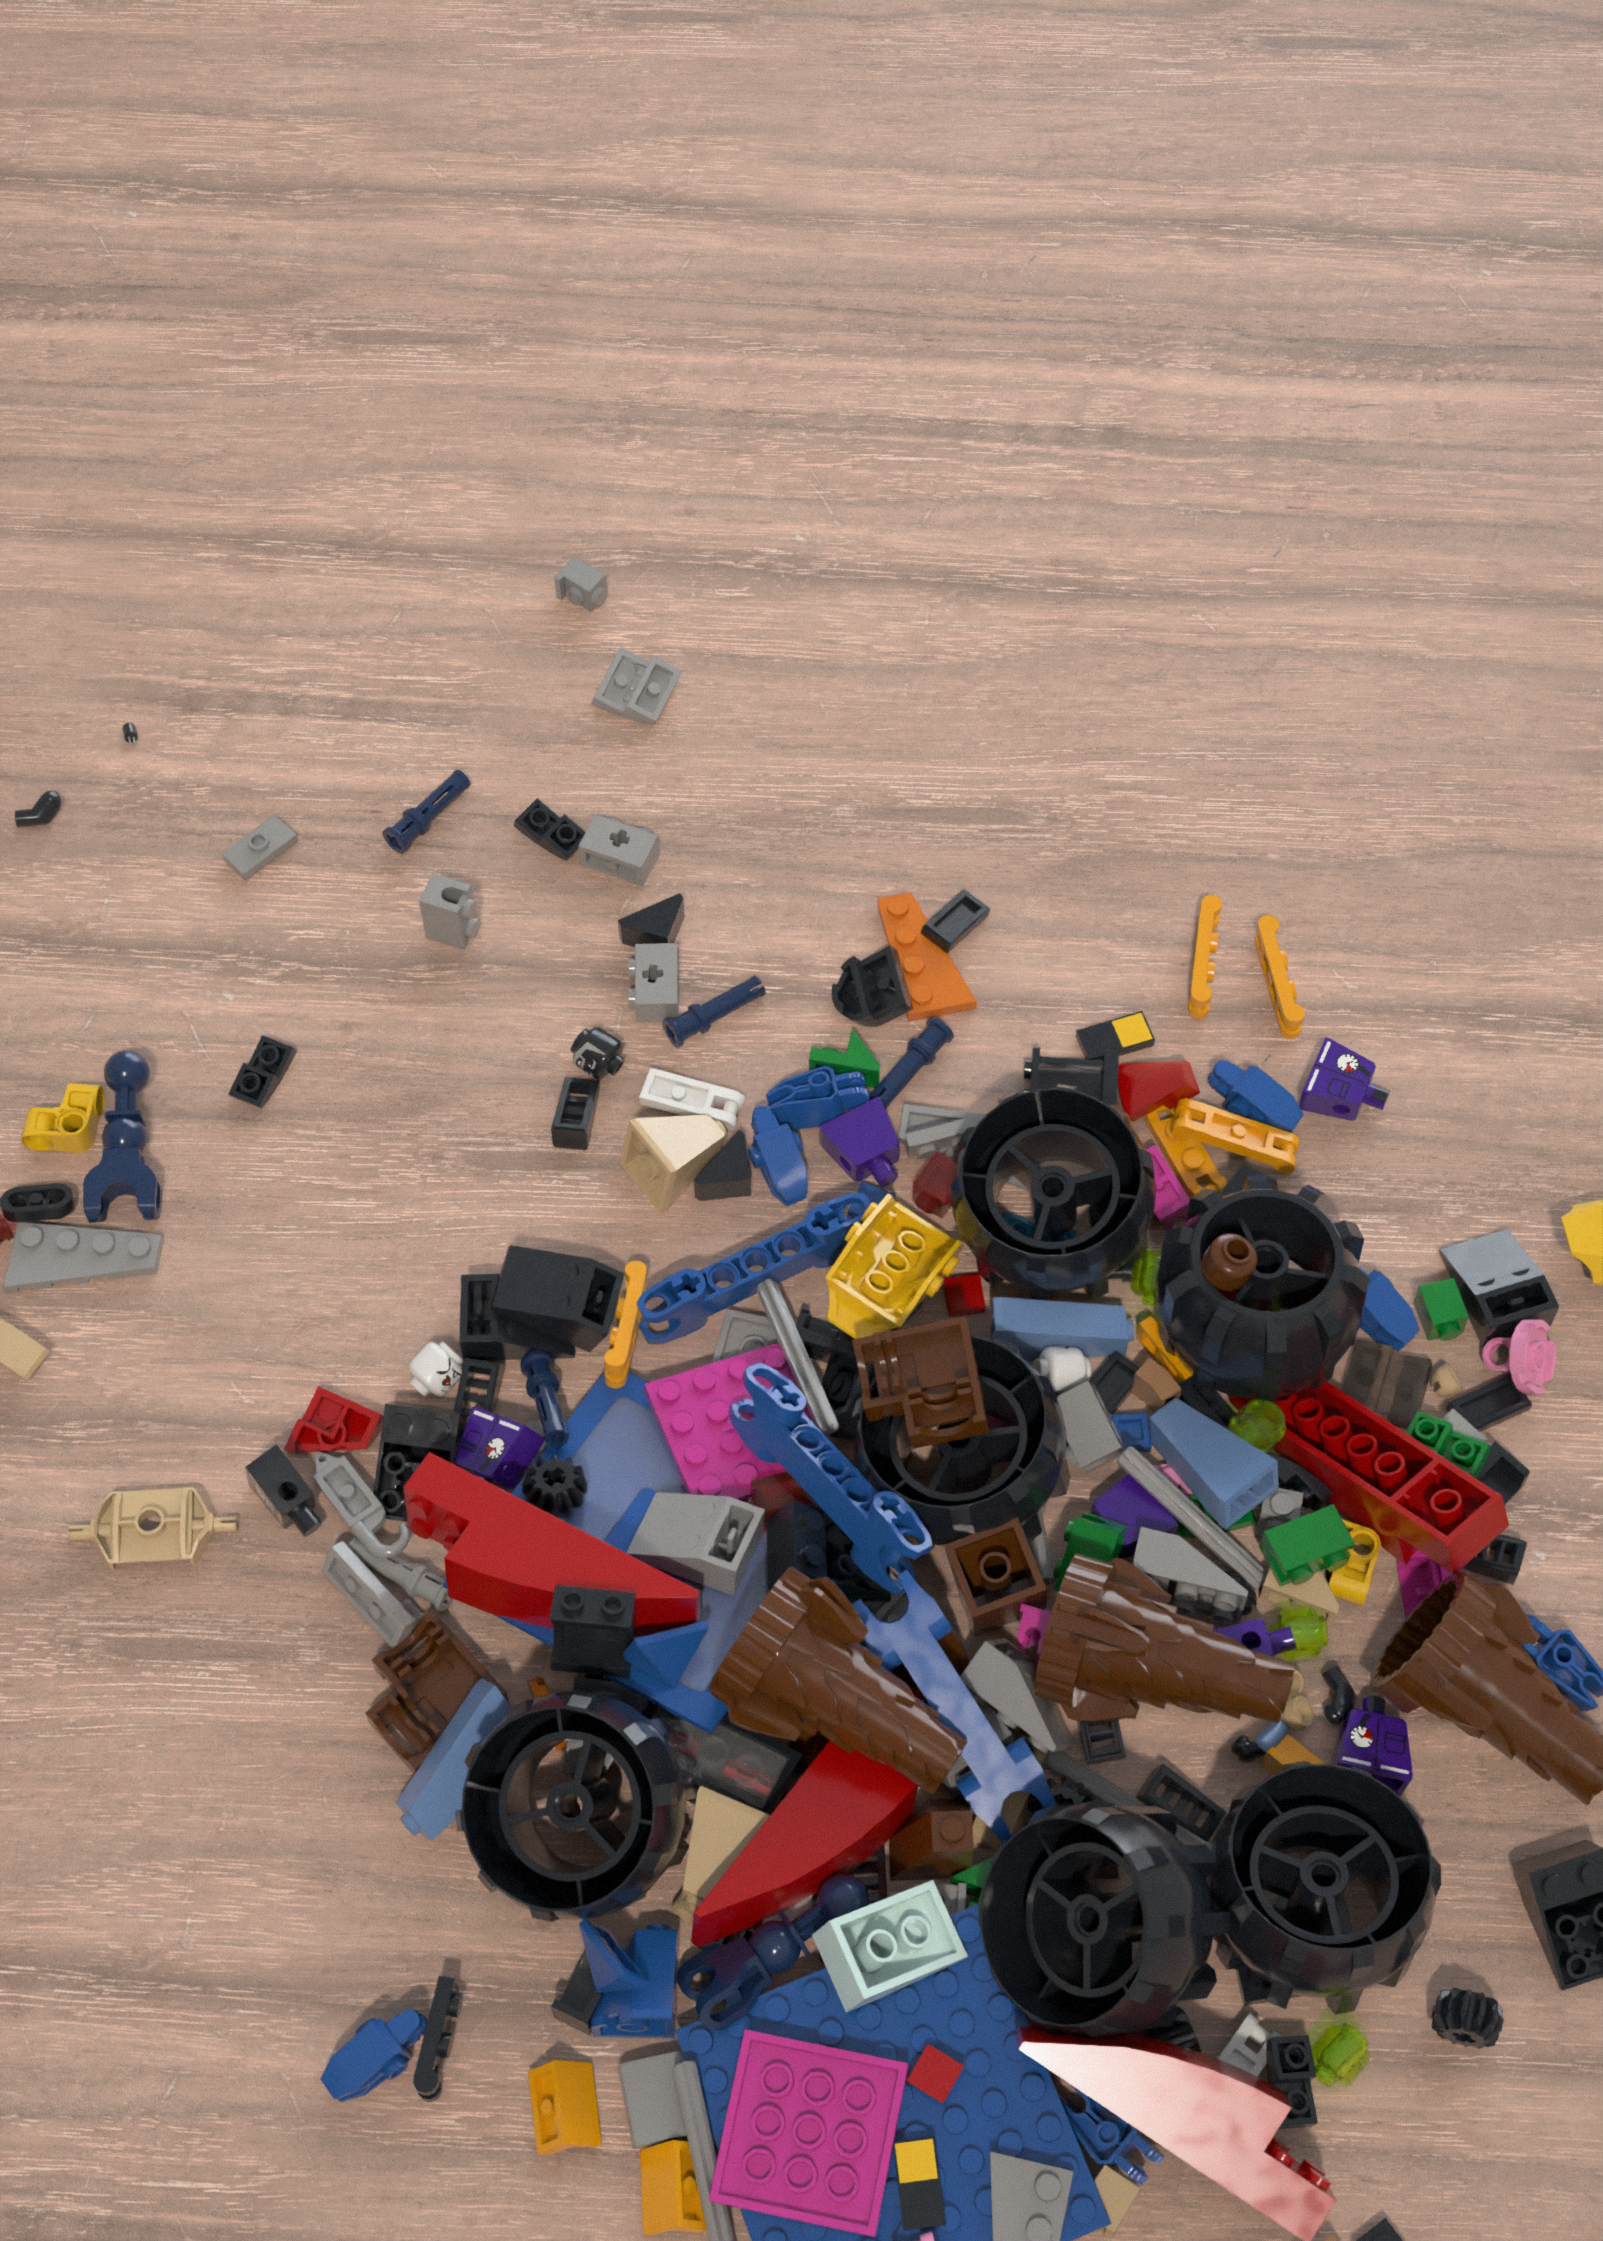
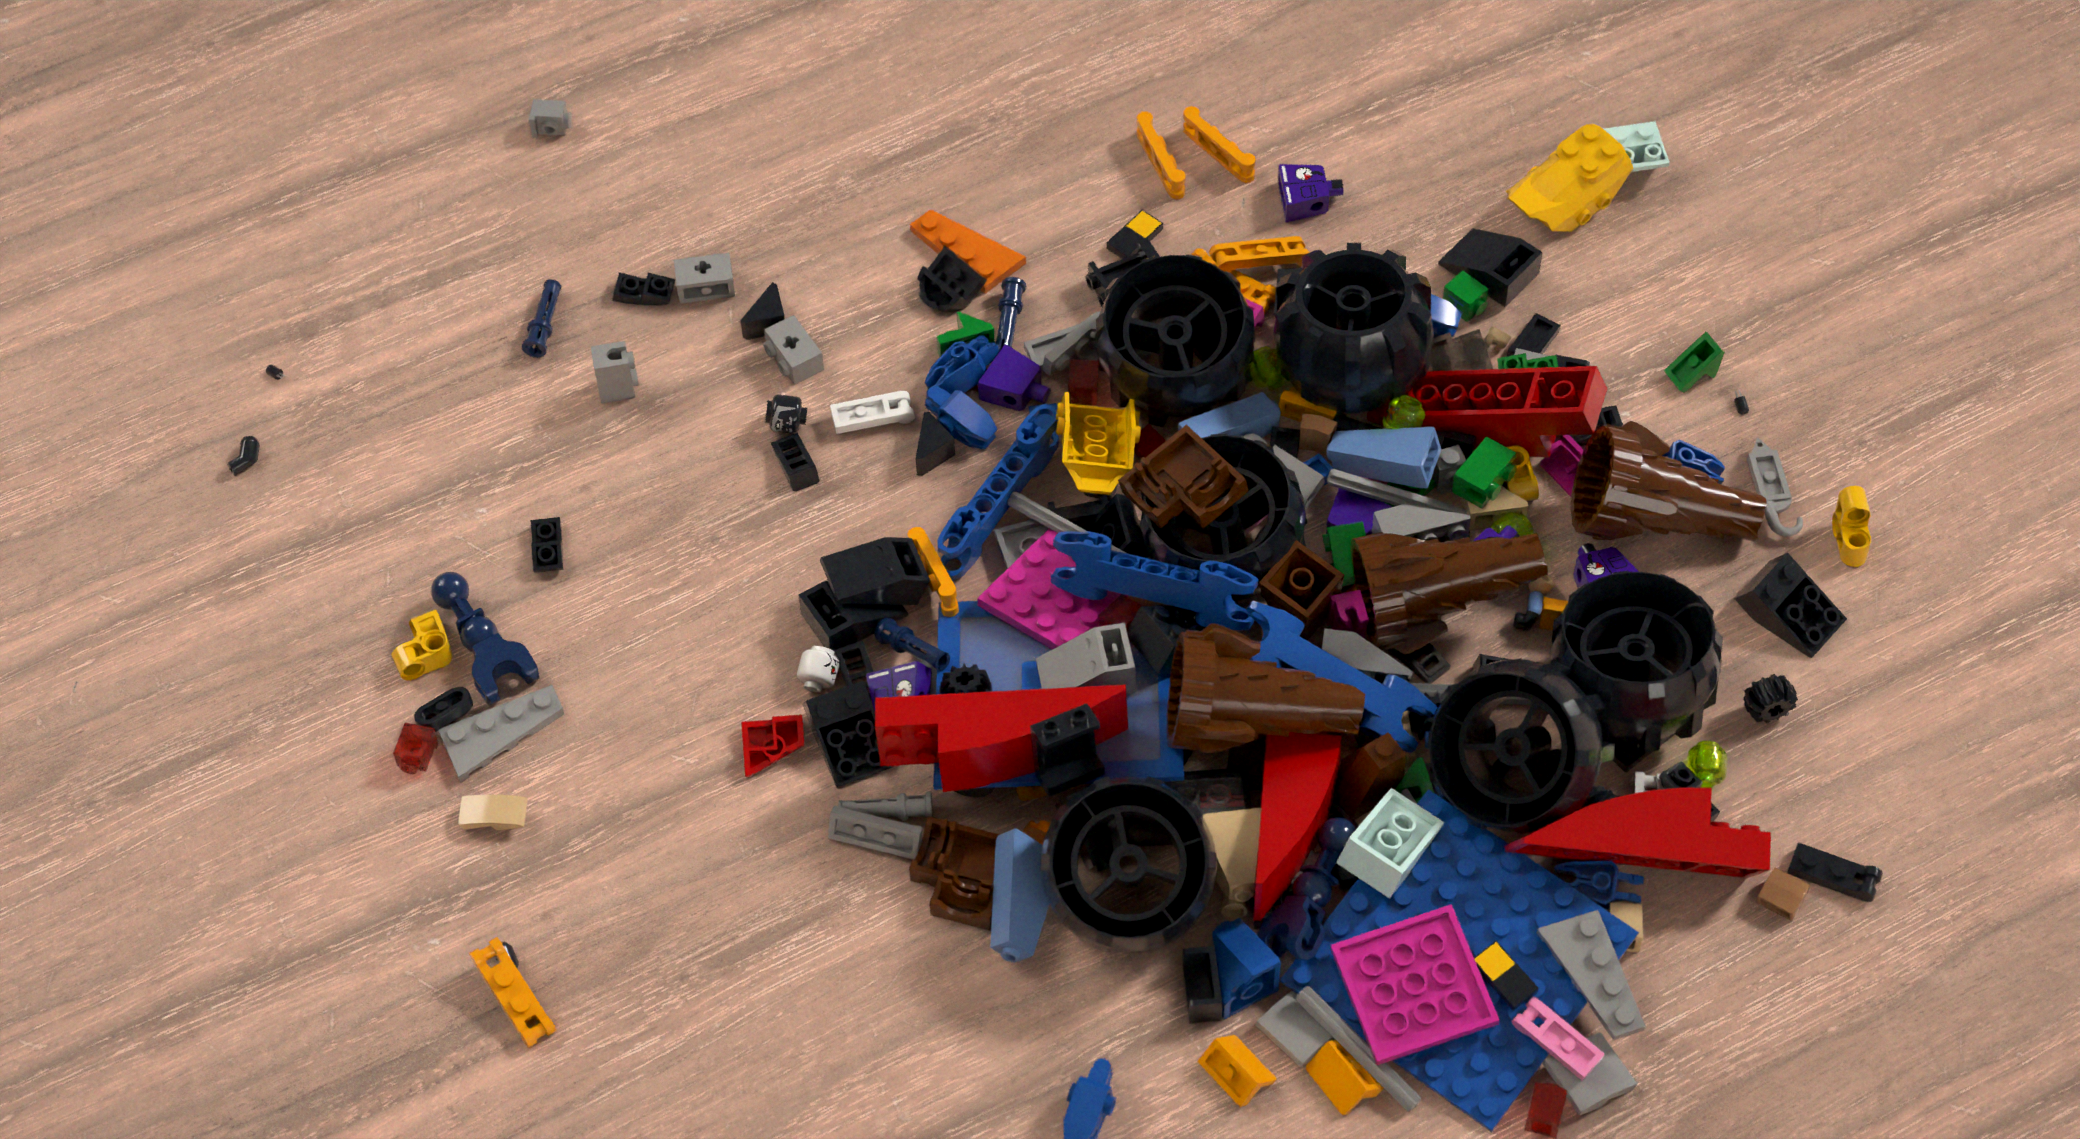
camera: 30 degrees left, 5 degrees down
(180, 1536) = (669, 889): tan plate -> none
(259, 847) = (433, 401): light grey plate -> none
(273, 1481) = (768, 797): black torso -> none
(356, 1504) = (823, 780): light grey plate -> none
(437, 2040) = (1124, 1075): black plate -> none
(608, 1961) = (1215, 955): blue slope -> none
(636, 687) = (637, 168): light grey slope -> none
(666, 1652) = (1121, 742): blue slope -> none
(670, 1153) = (882, 454): tan slope -> none
(699, 1017) = (840, 358): dark blue pin -> none
(935, 2074) = (1471, 903): red tile -> none
(955, 921) = (974, 212): black tile -> none
(1154, 1084) = (1193, 240): red slope -> none
(1229, 1262) = (1334, 307): reddish brown head -> none
(1255, 1095) = (1255, 223): blue hinge -> none
(1343, 1695) = (1561, 556): black arm -> none
(1530, 1356) = (1540, 294): bright pink tile -> none

